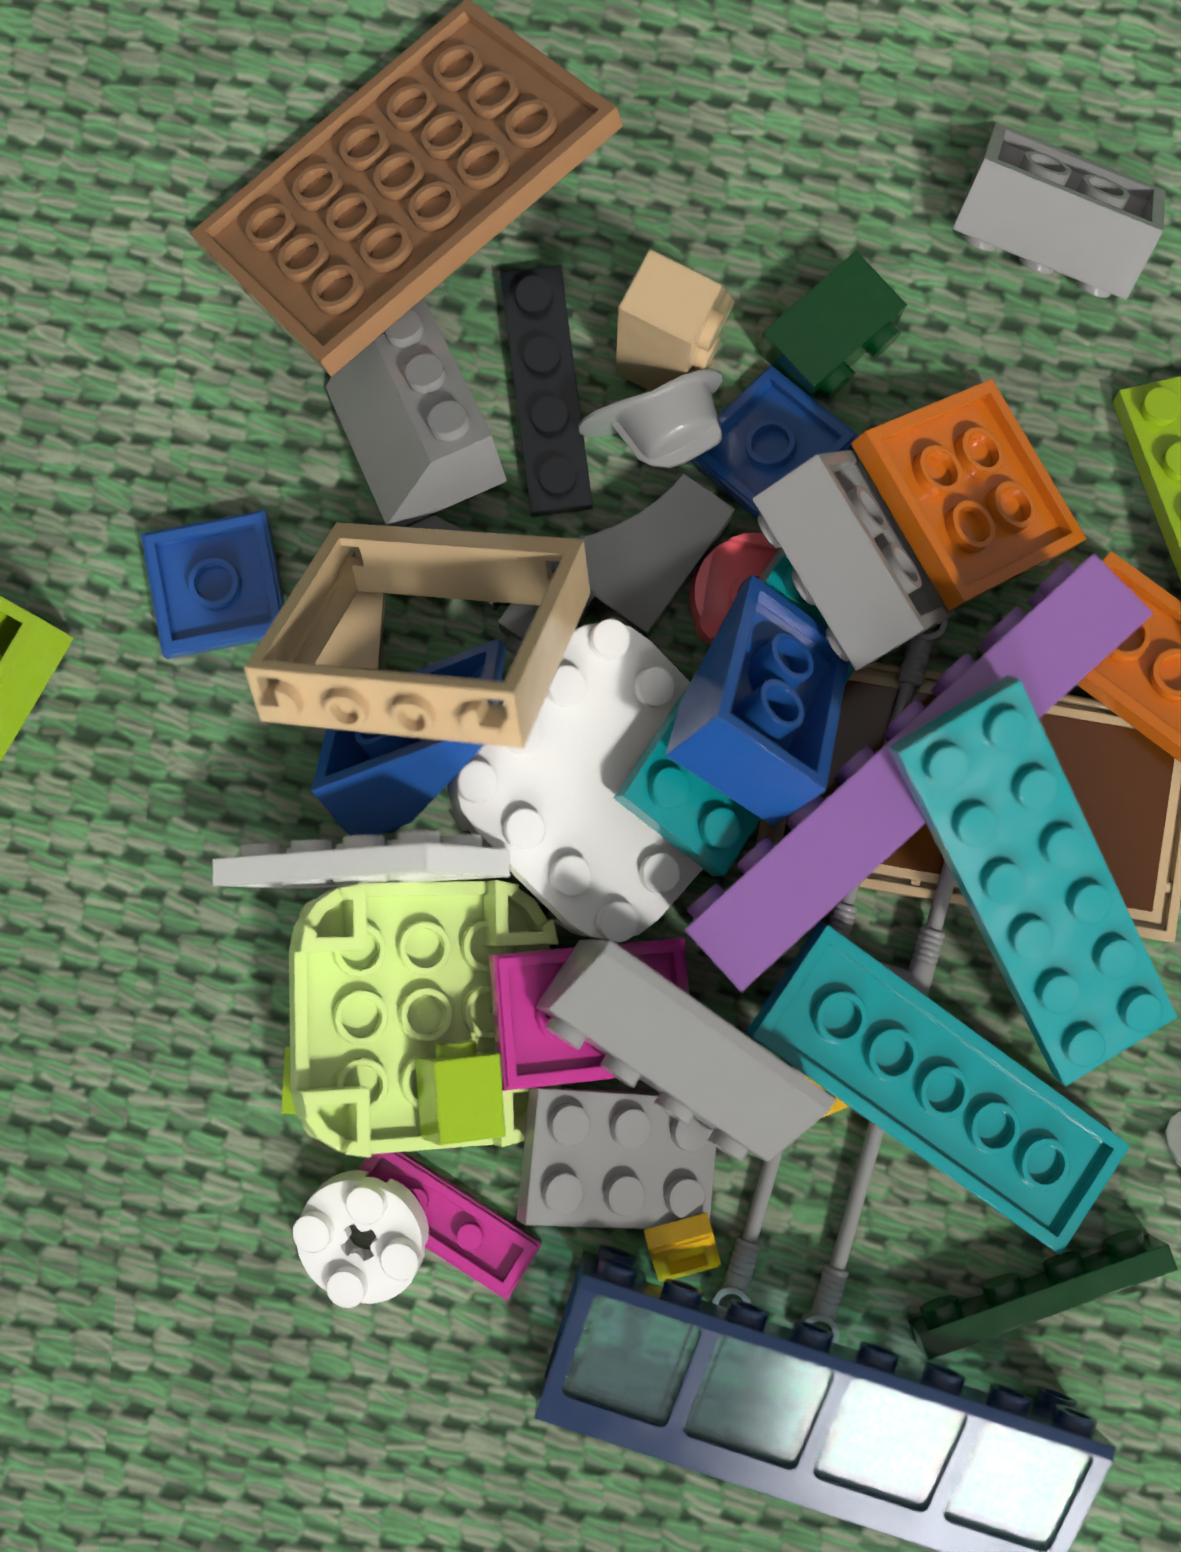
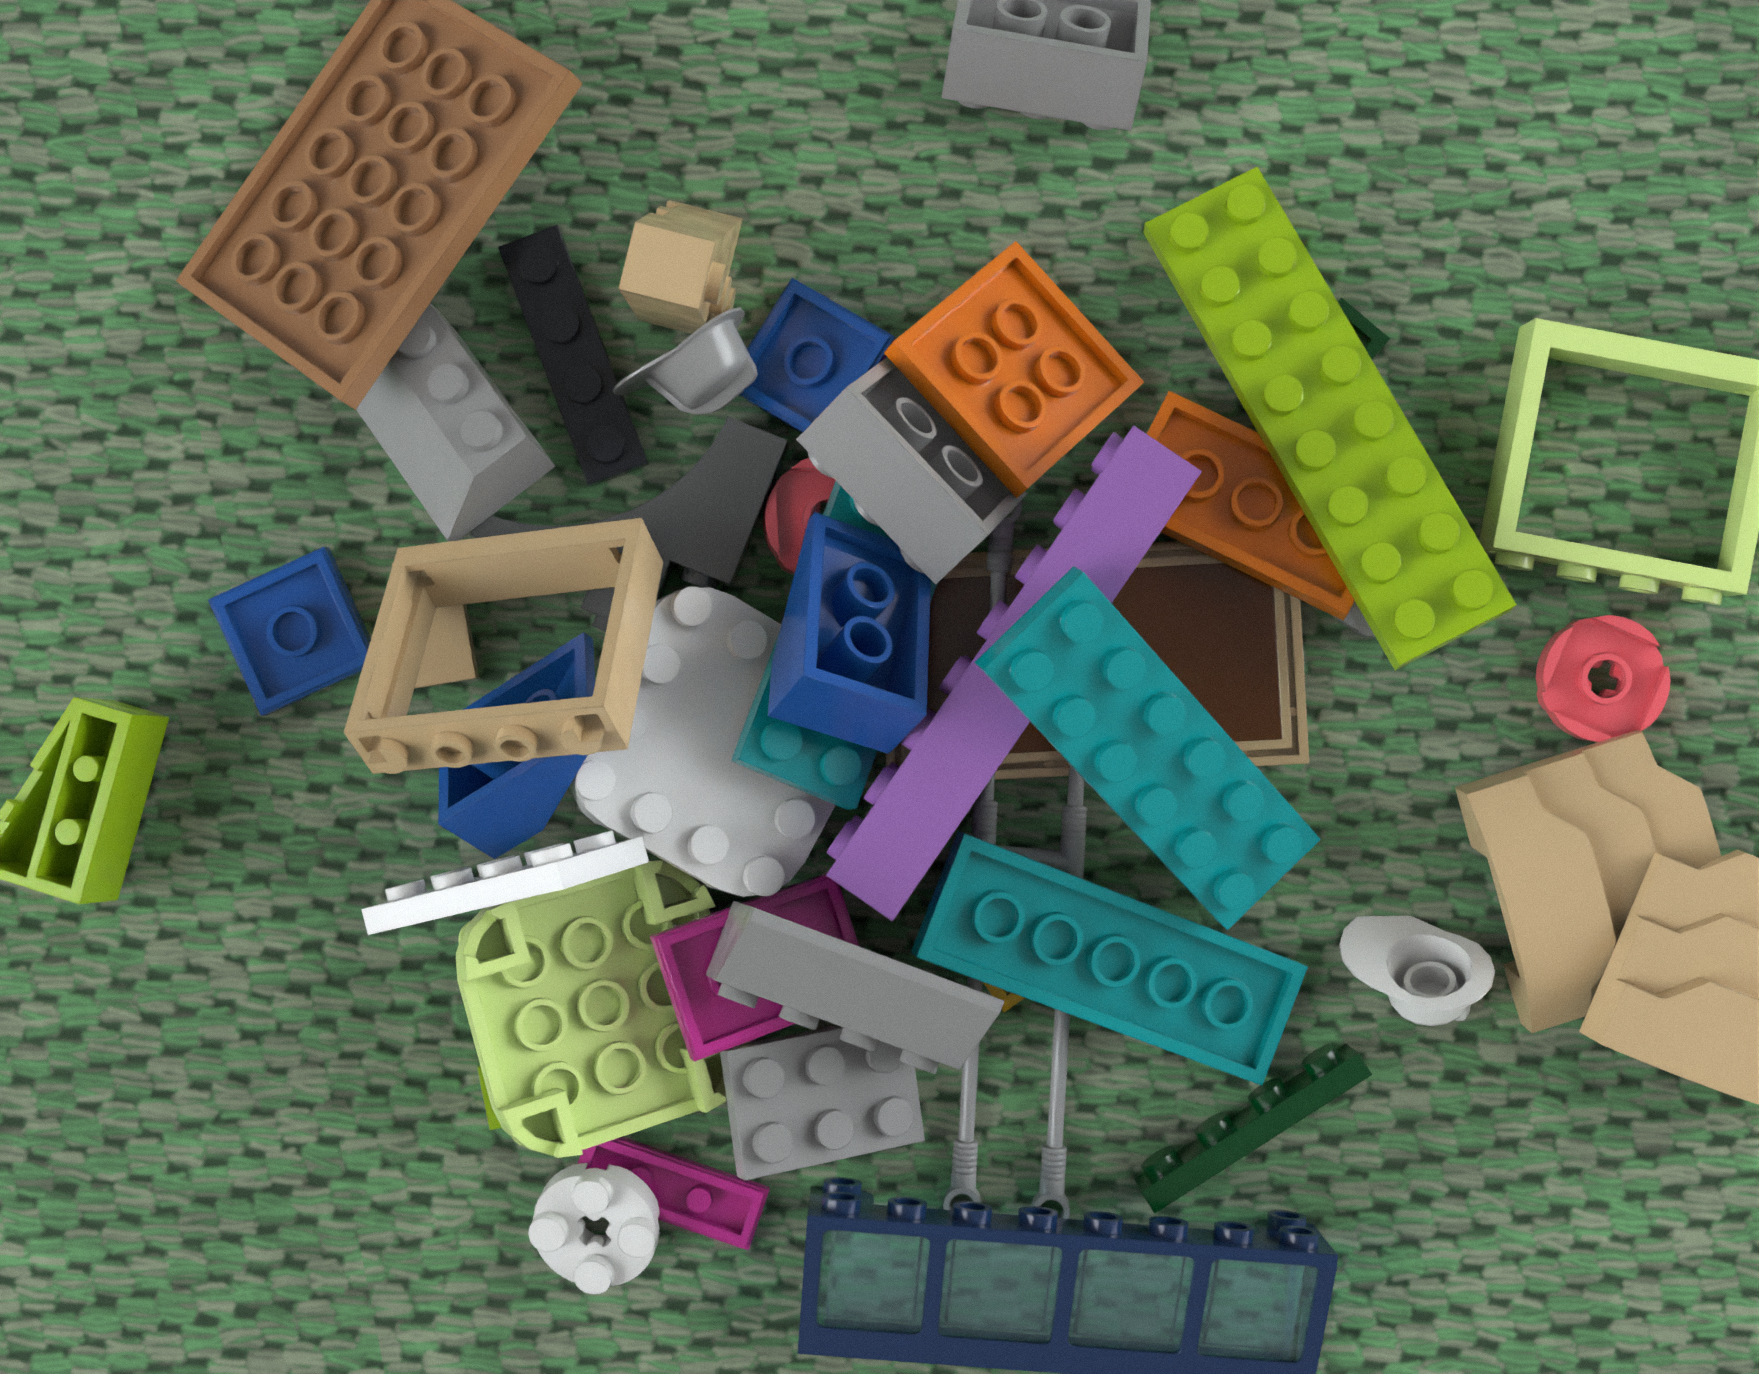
camera: 15 degrees left, 5 degrees up
(459, 1094) = (653, 1074): lime brick -> none
(682, 1247) = (903, 1163): yellow tile -> none
(833, 328) = (845, 228): dark green brick -> none

